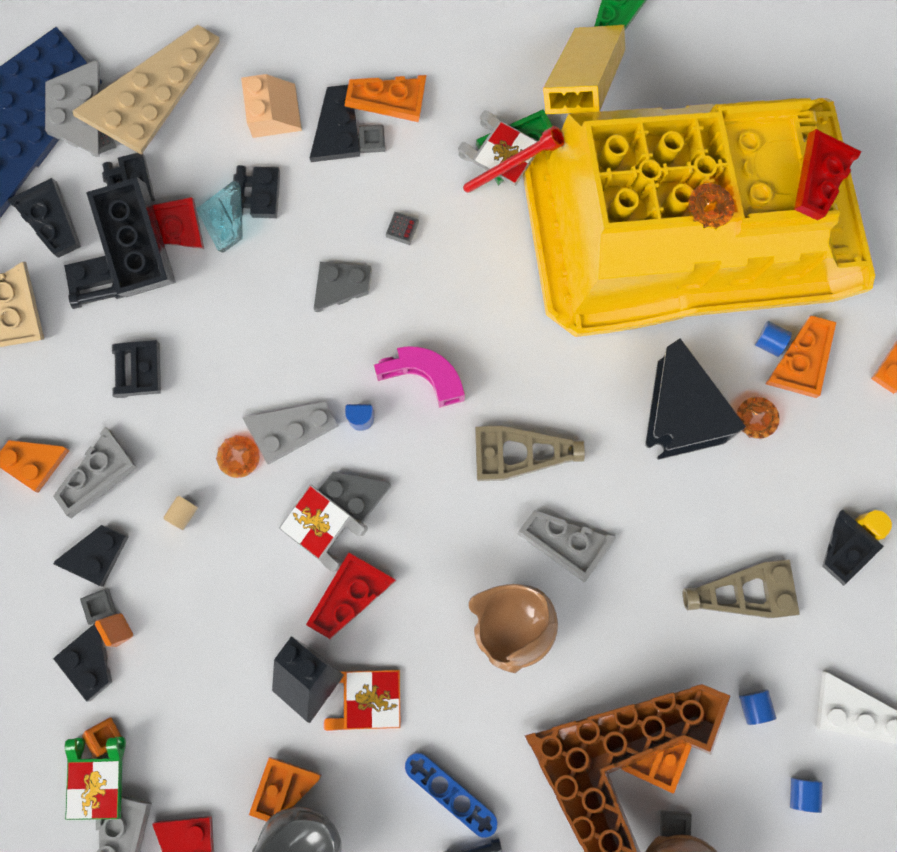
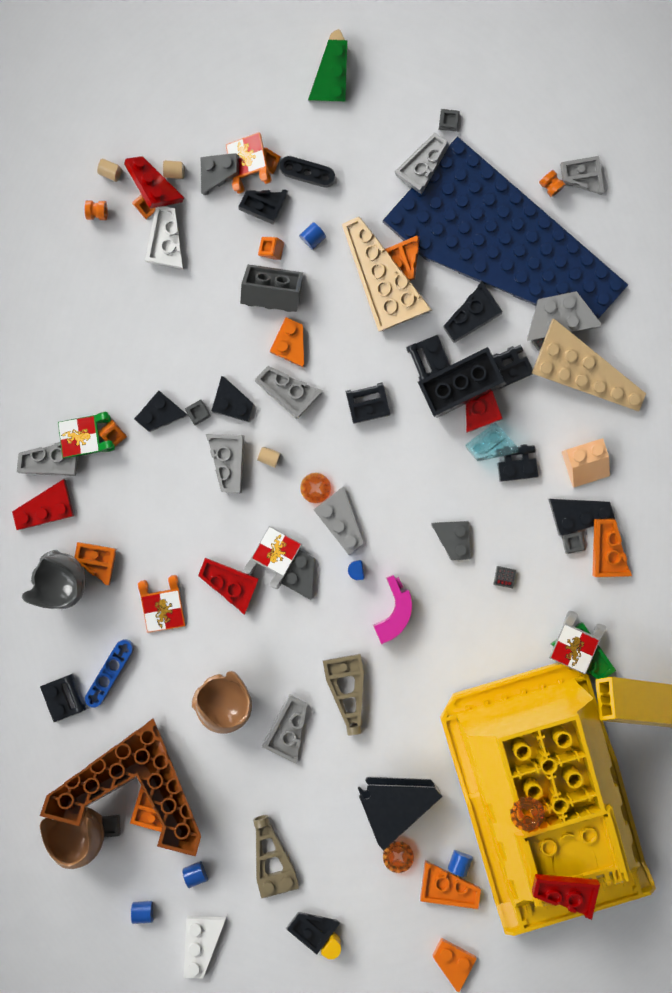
camera: 75 degrees right, 10 degrees up
(114, 630) = (183, 427): orange slope -> none
(174, 571) = (228, 459): none -> light grey wing
(303, 678) = (168, 563): black slope -> none
(550, 140) = (576, 684): piece -> none

